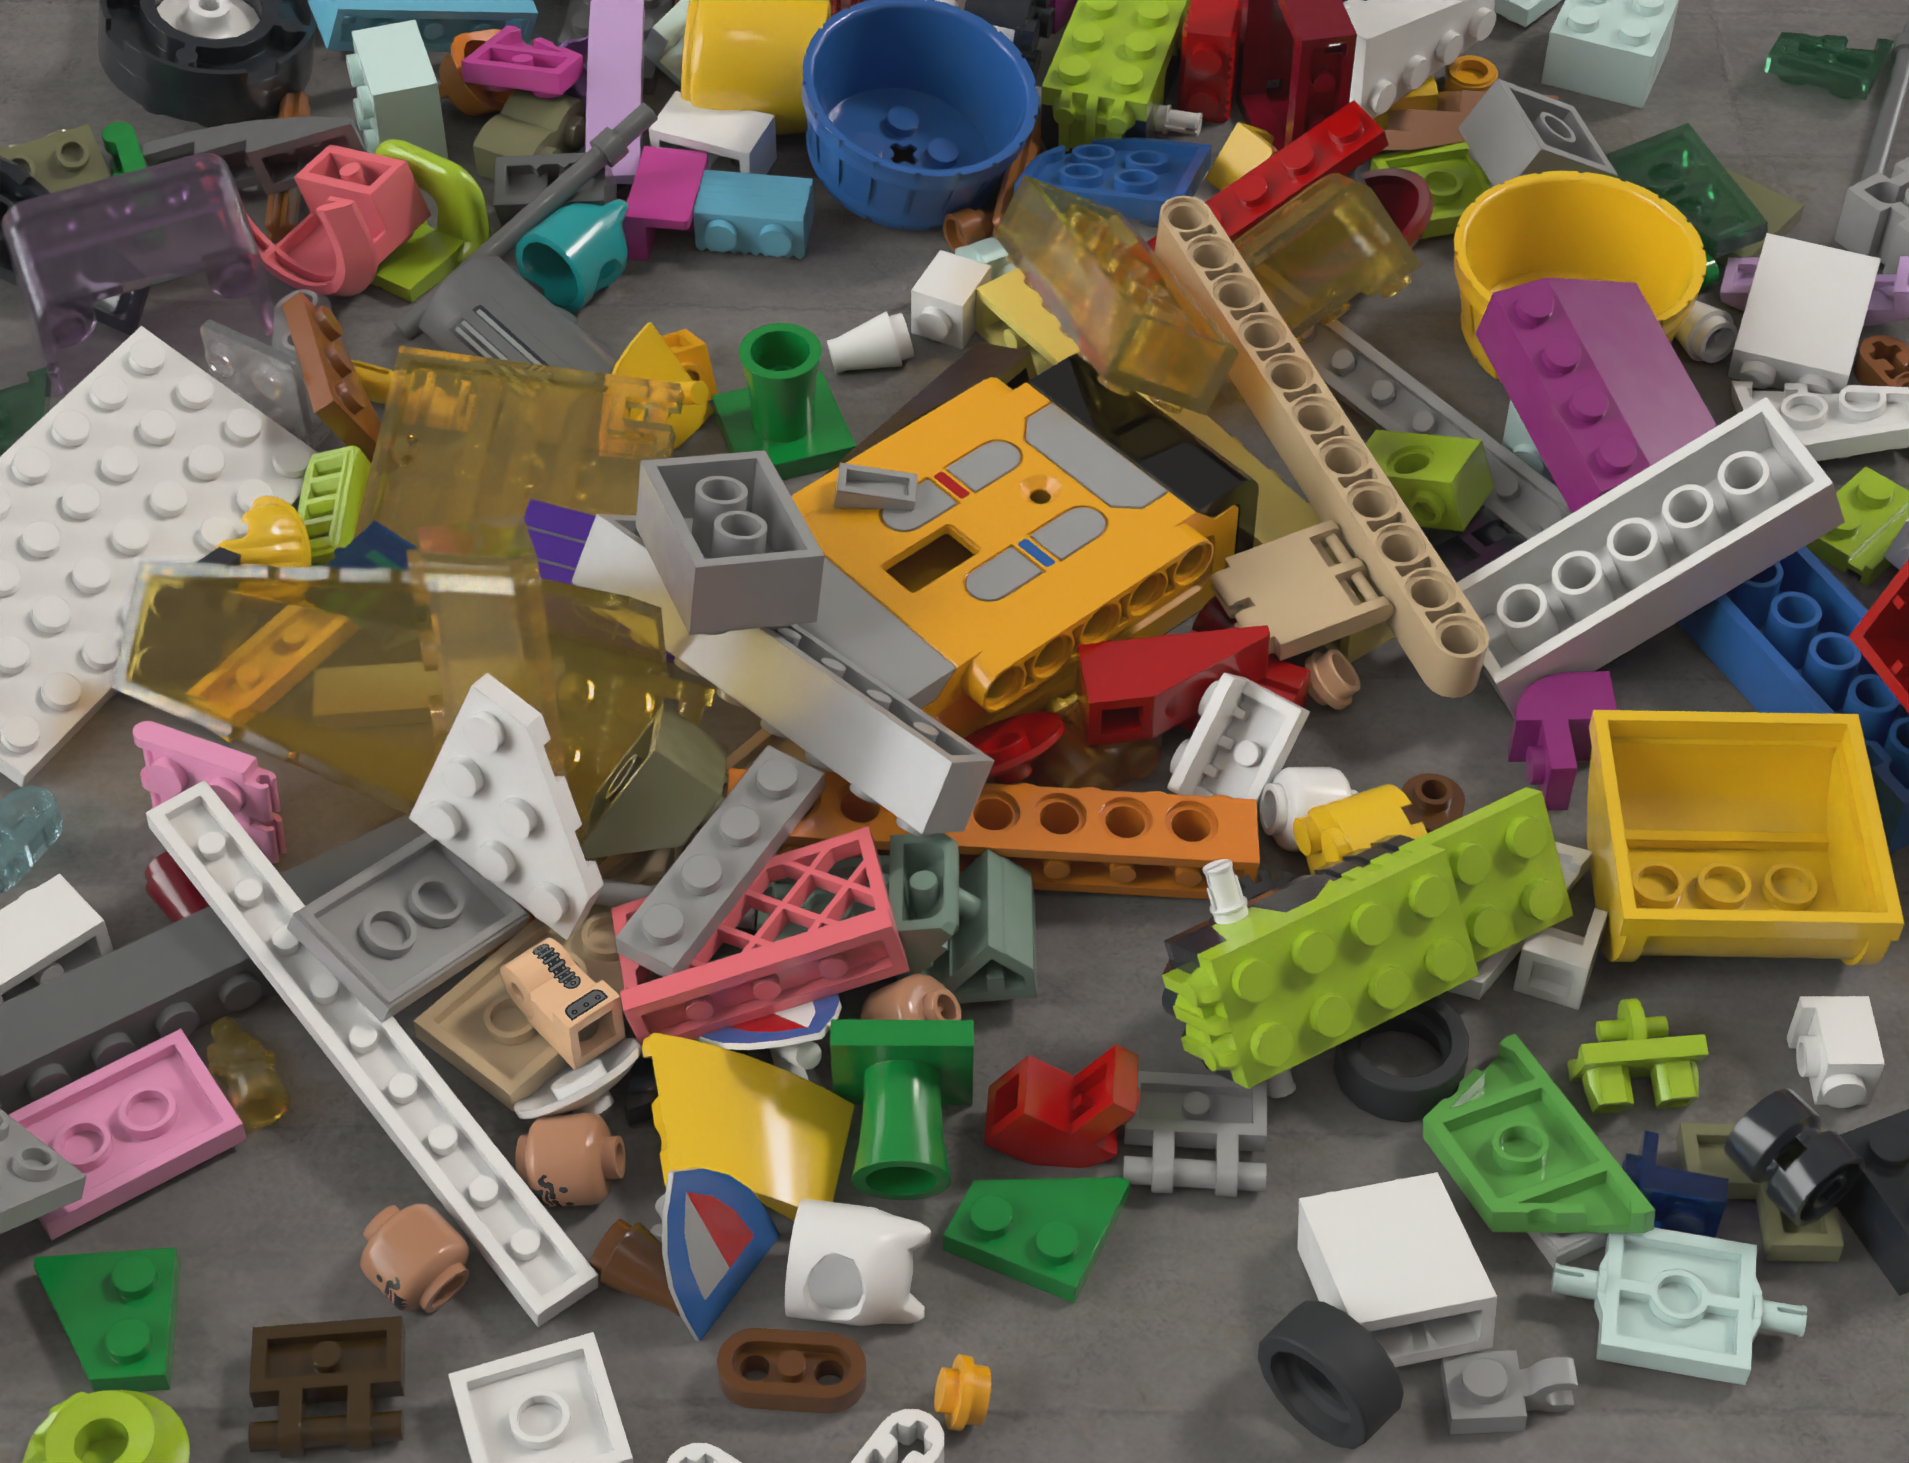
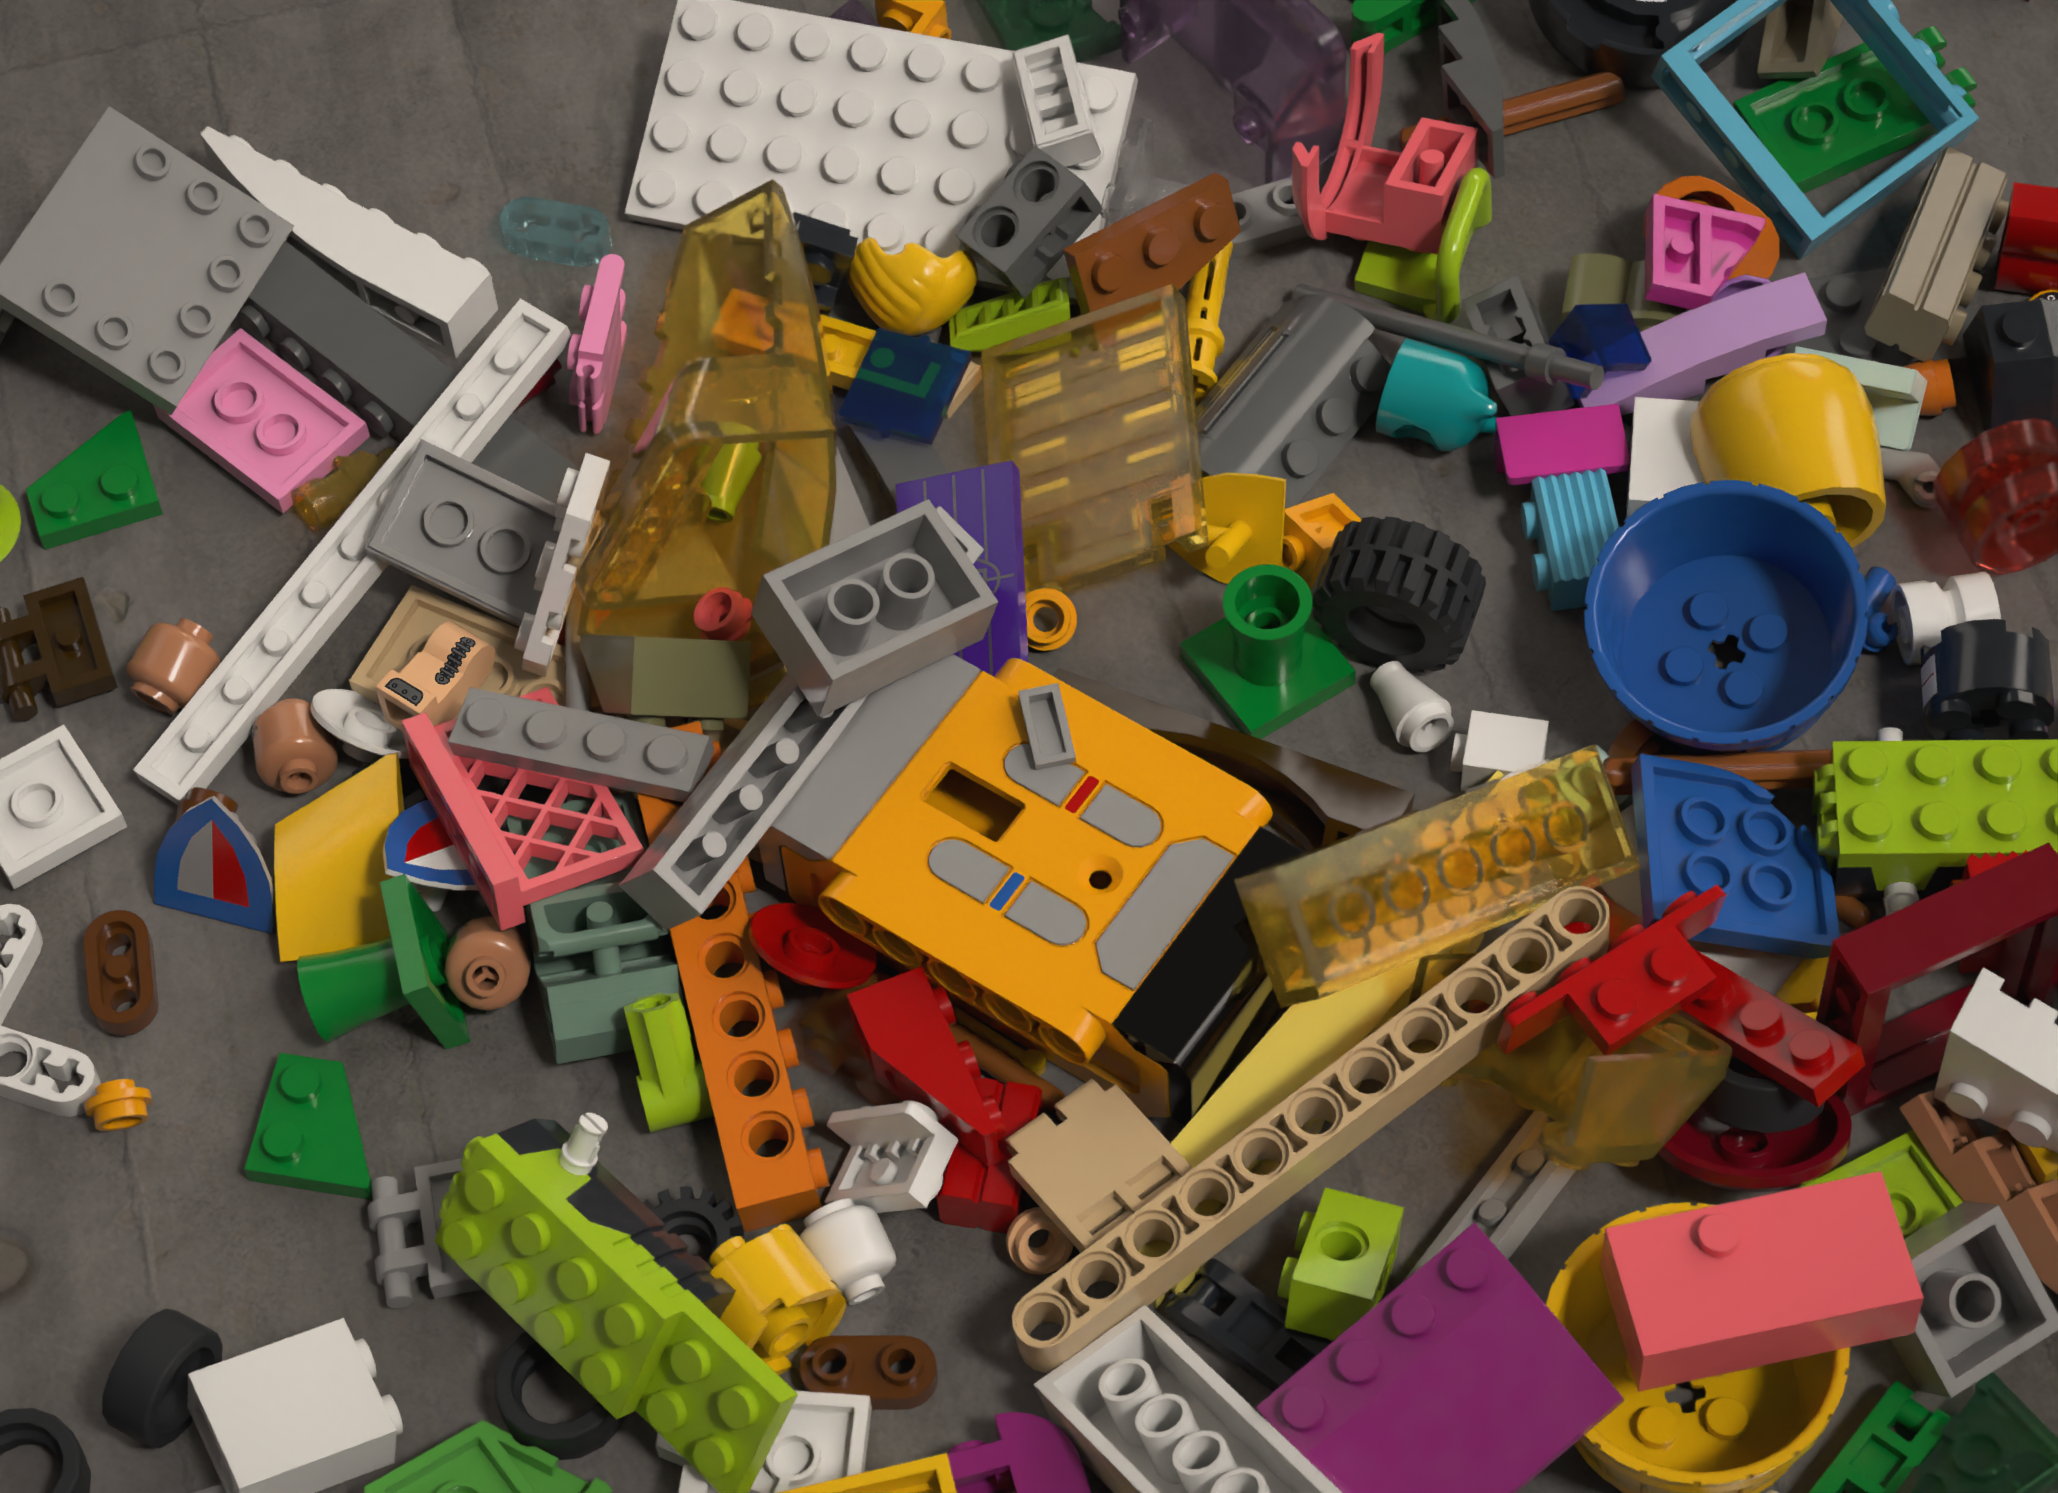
camera: 80 degrees right, 10 degrees up
(160, 400) = (1067, 138): none -> white slope
(265, 437) = (1037, 226): none -> dark grey brick
(396, 88) = (1605, 166): light aqua brick -> none
(401, 728) = (729, 479): none -> lime cone
(583, 123) = (1602, 337): none -> clear blue panel
(588, 745) = (723, 615): none -> coral plate
(783, 278) = (1398, 594): none -> black tyre
(852, 1265) = (219, 979): white piece -> none
(1061, 1117) = (418, 1110): red brick -> none
(1087, 899) = (669, 1076): none -> lime piece
(1253, 206) = (1630, 987): none -> red bracket
(1555, 184) = (1760, 1281): none -> coral brick

